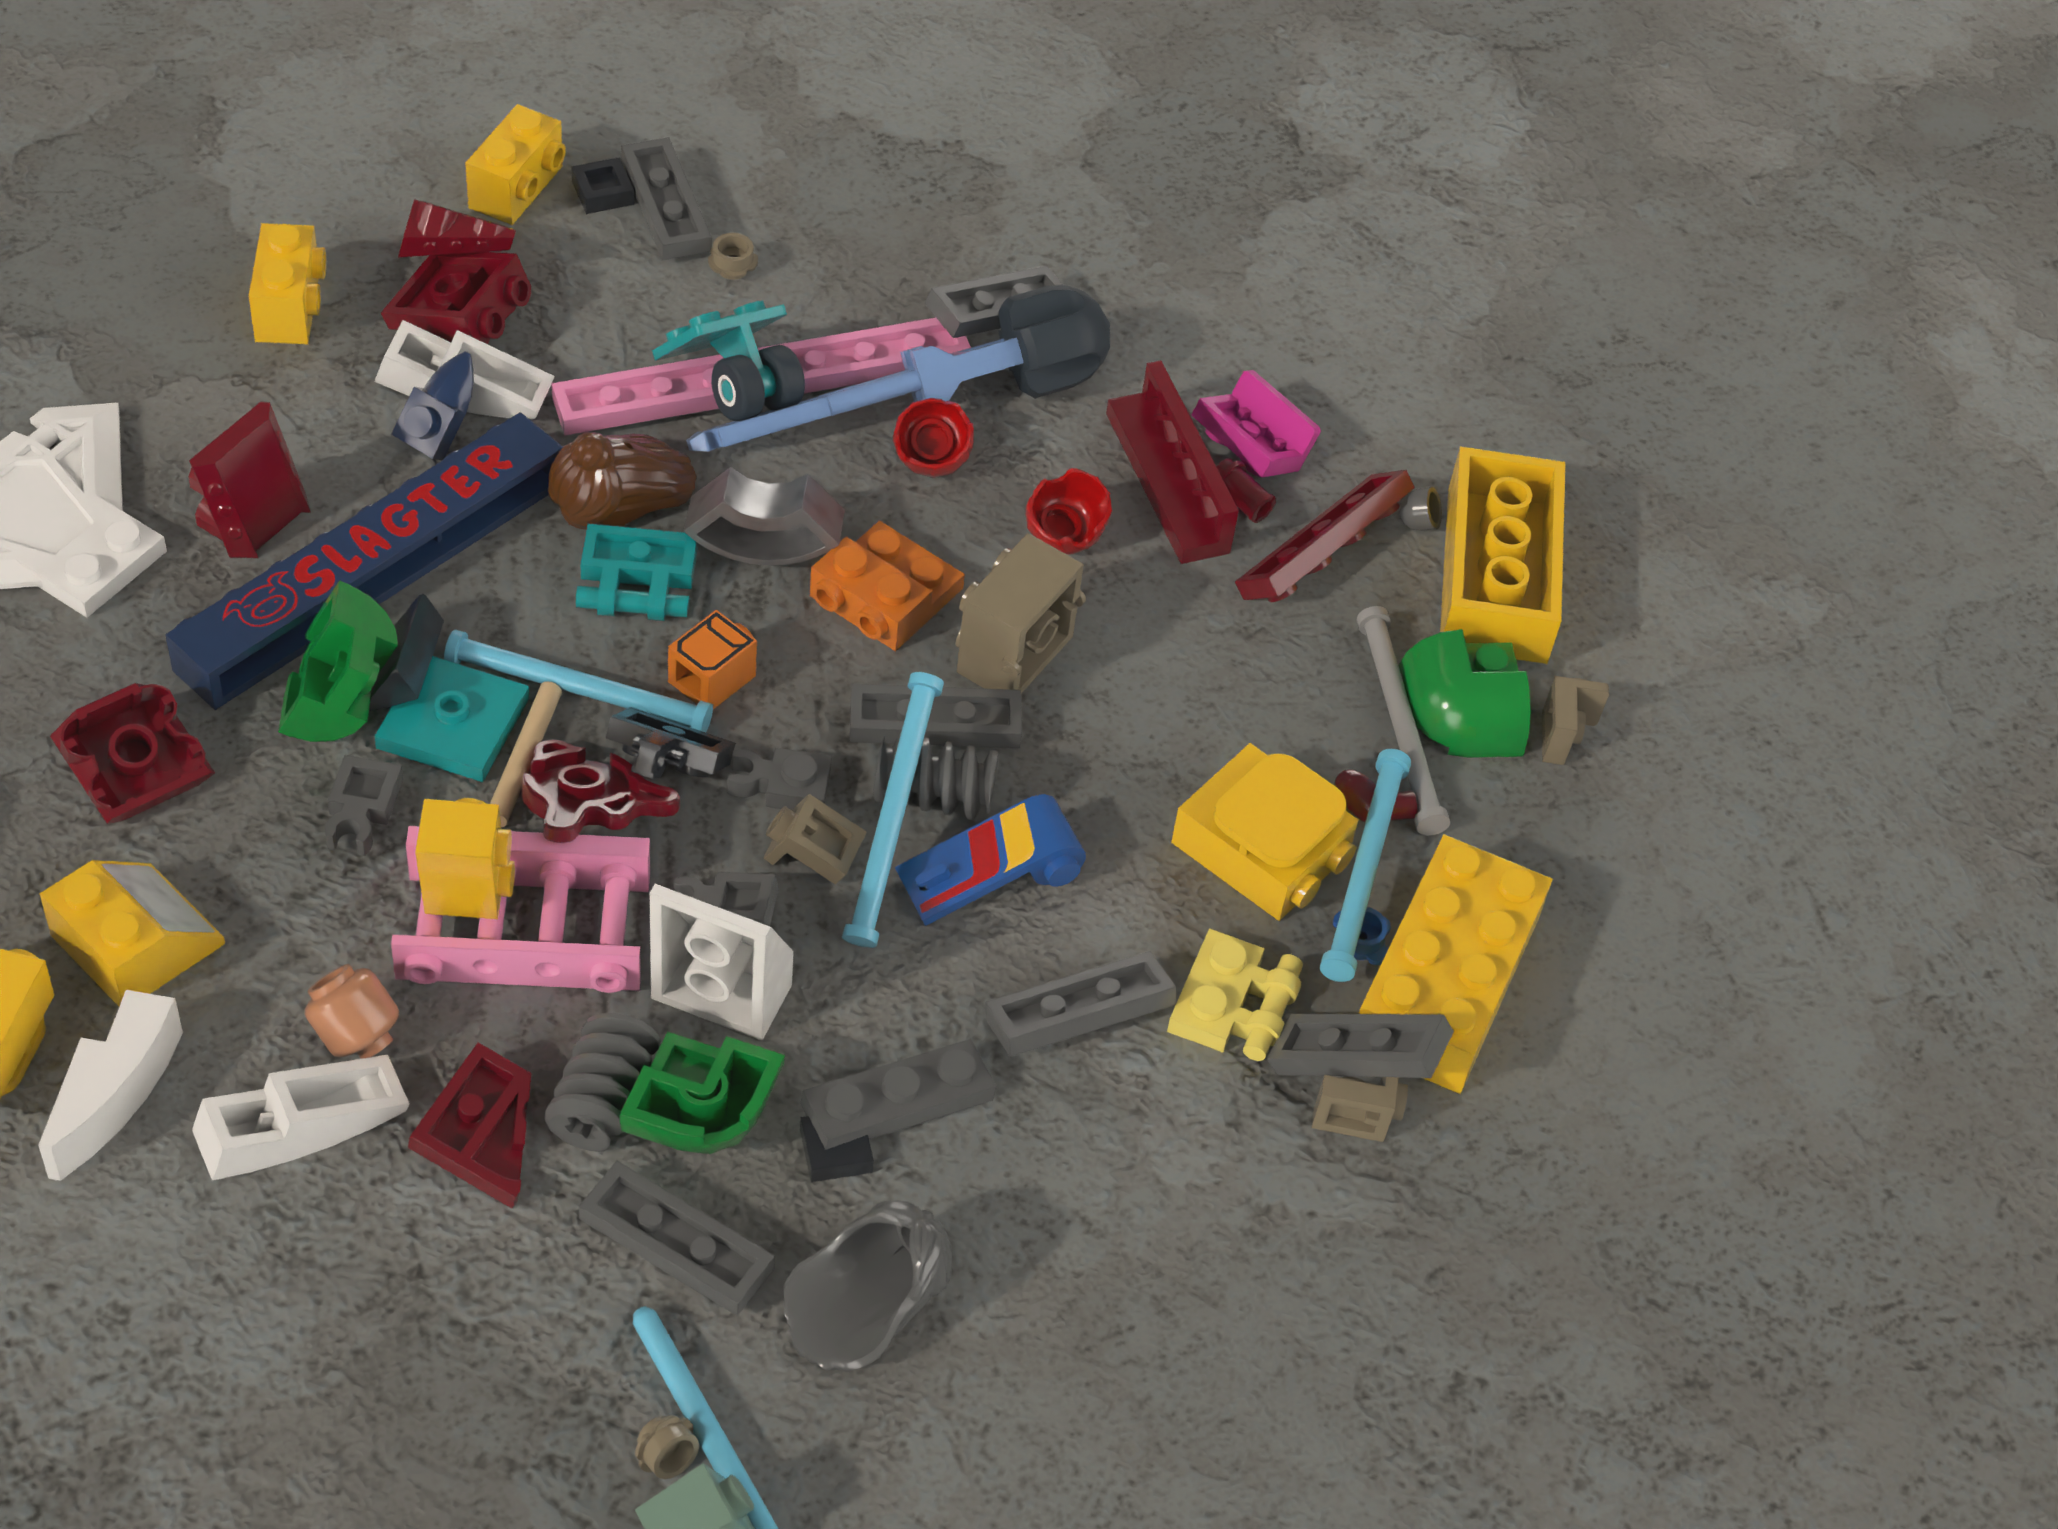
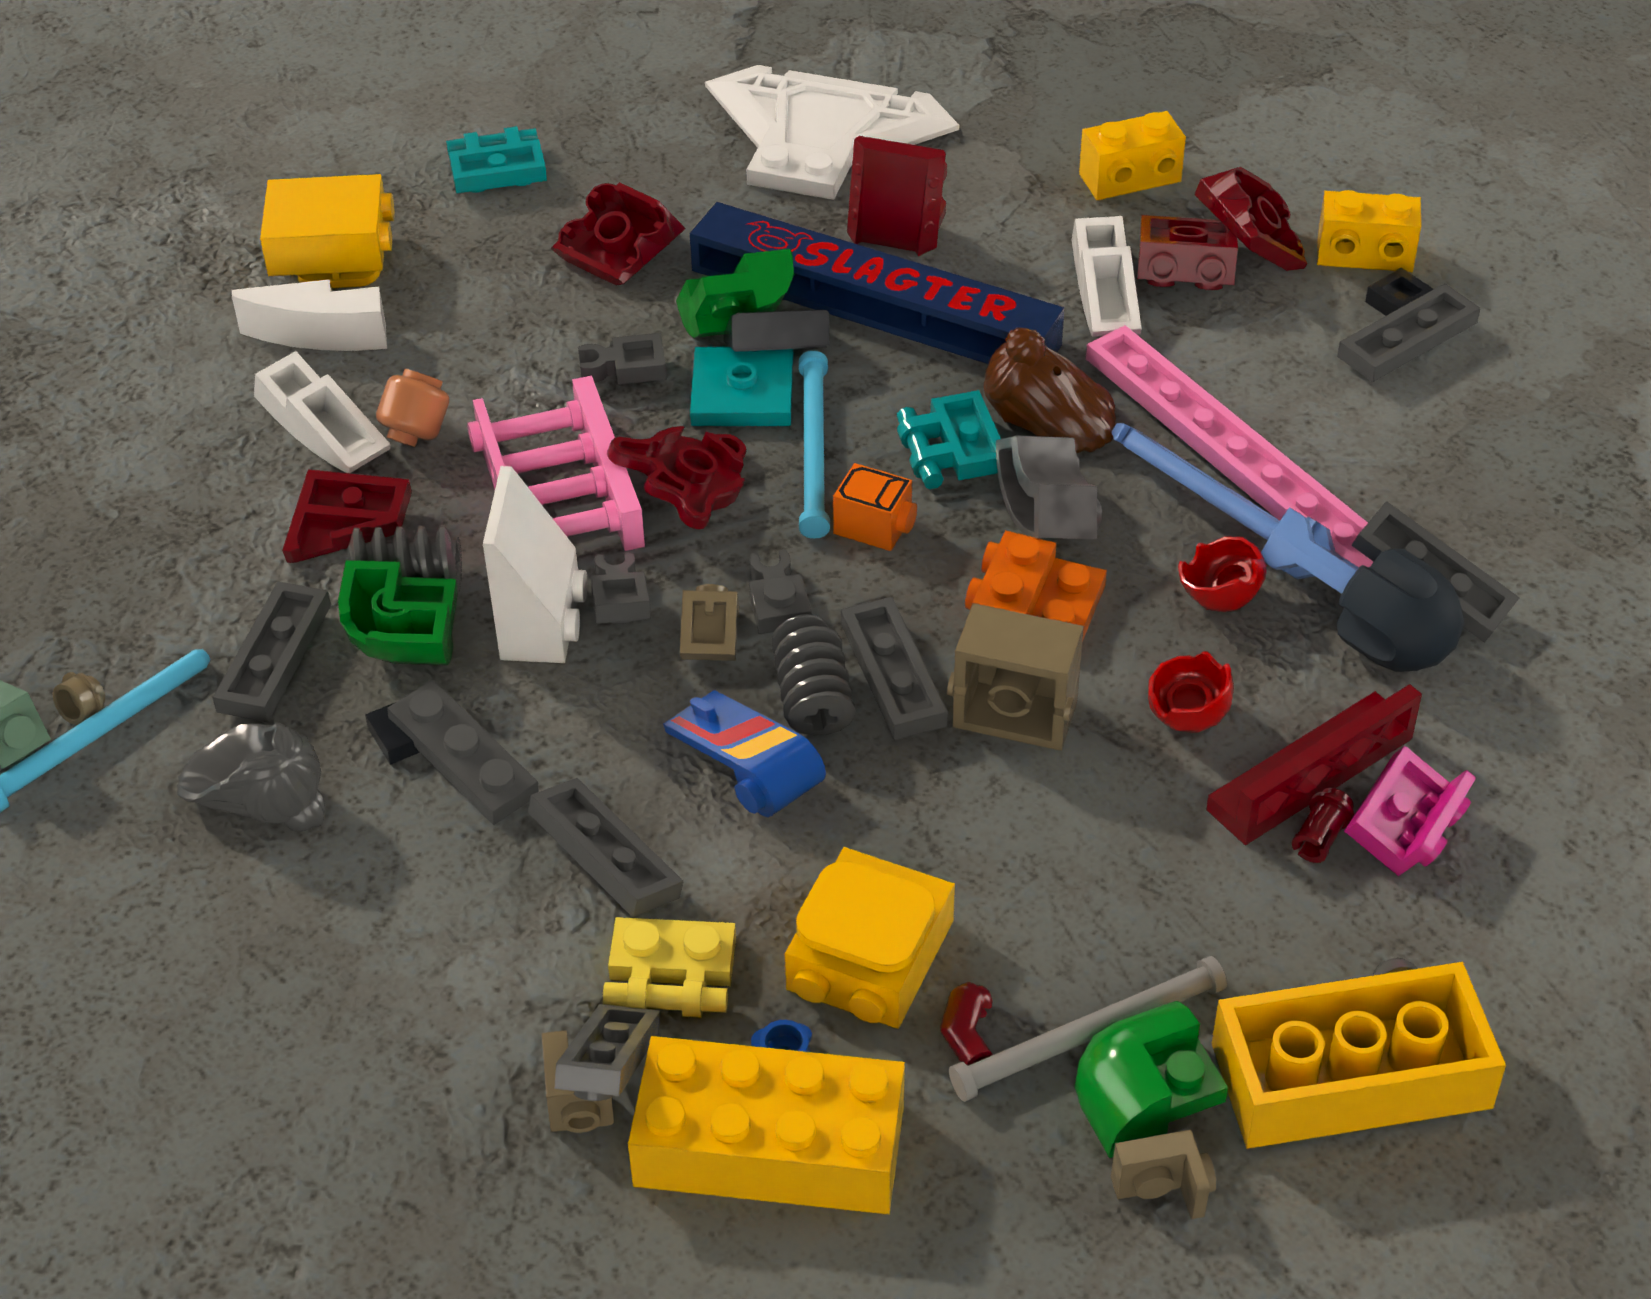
camera: 80 degrees right, 5 degrees down
(127, 926) = (454, 281): yellow slope -> none
(438, 409) = (1047, 269): dark blue plate -> none
(463, 858) = (542, 391): yellow brick -> none
(523, 751) = (750, 433): tan bar -> none
(665, 742) = (766, 500): black hinge -> none
(732, 256) = (1371, 393): dark tan plate -> none
(744, 376) = (1213, 432): plate -> none
(862, 930) = (629, 681): medium azure bar -> none
(1334, 528) = (1323, 914): dark red plate -> none
(1340, 962) = (857, 1019): medium azure bar -> none

